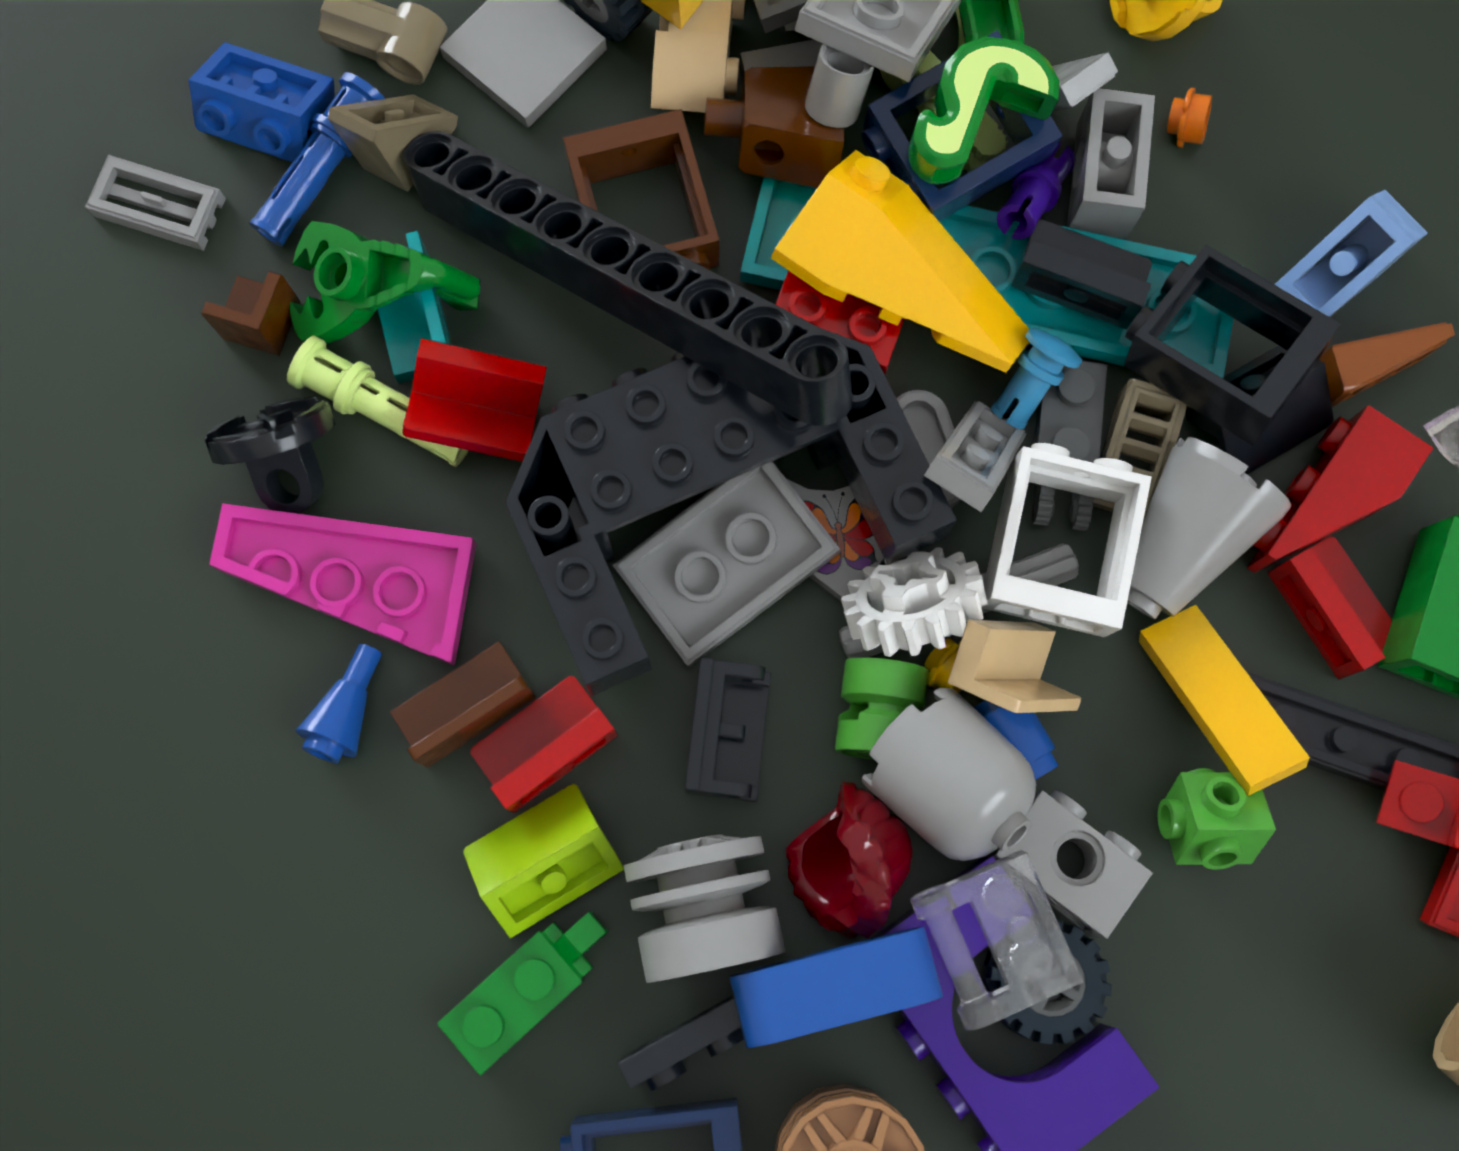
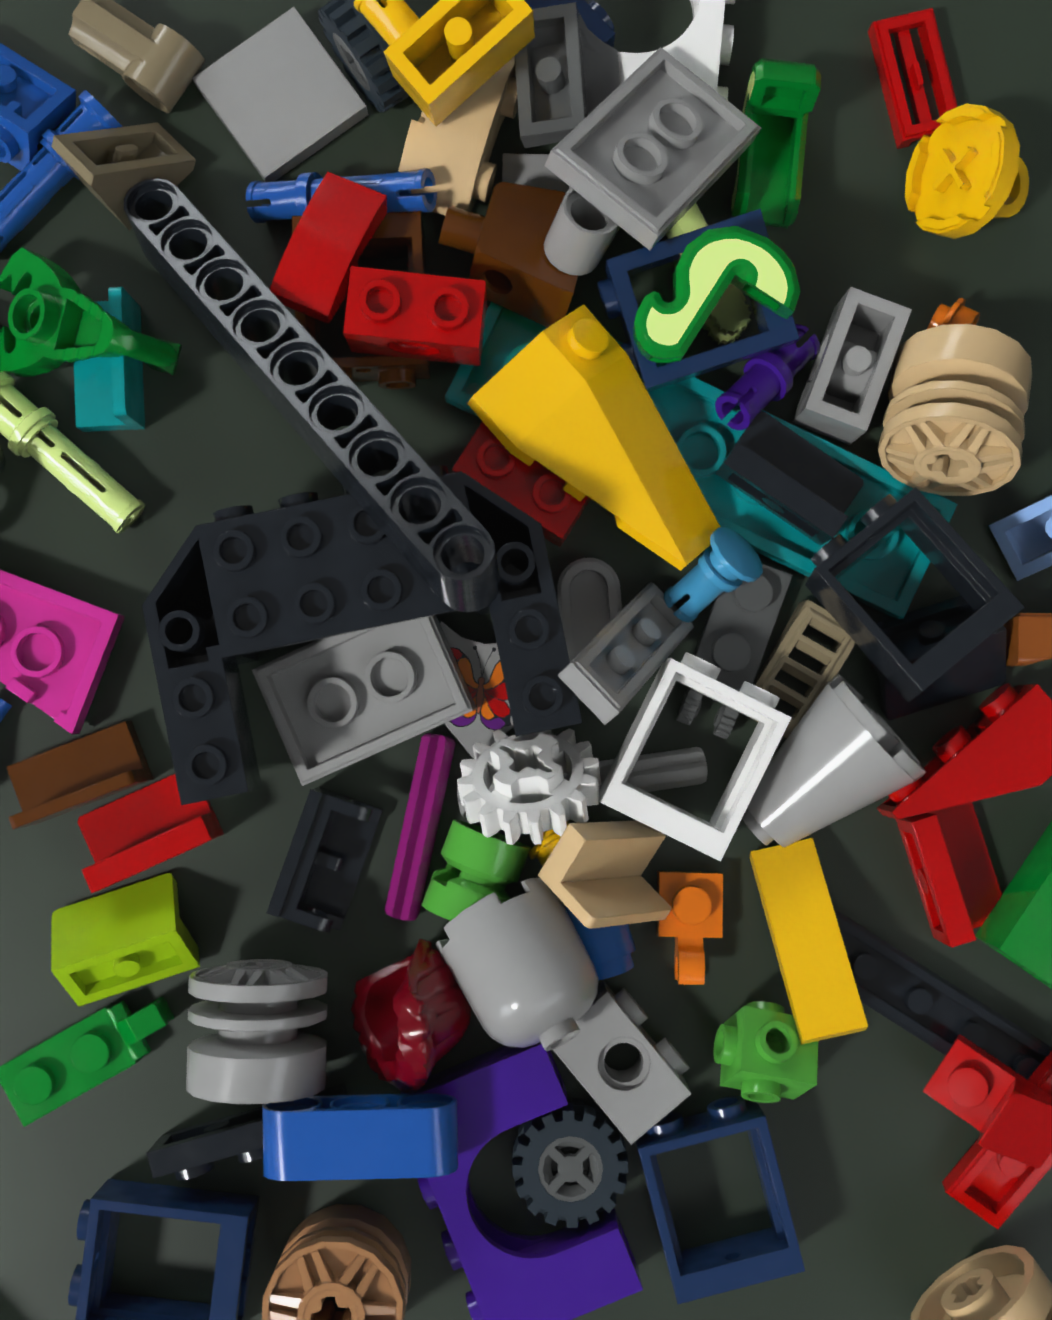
camera: 10 degrees right, 10 degrees up
(473, 400) = (145, 477): red panel -> none
(606, 148) = (325, 246): none -> red slope
(610, 109) = (293, 196): none -> blue pin
(705, 191) = (415, 315): none -> red brick
(812, 681) = (420, 826): none -> magenta axle
(1017, 930) = (544, 1122): clear plate -> none
(1082, 78) = (830, 271): light grey tile -> none
(1101, 711) = (694, 915): none -> orange plate
(1221, 174) = (956, 410): none -> tan wheel
(1247, 1040) = (735, 1260): none -> dark blue window

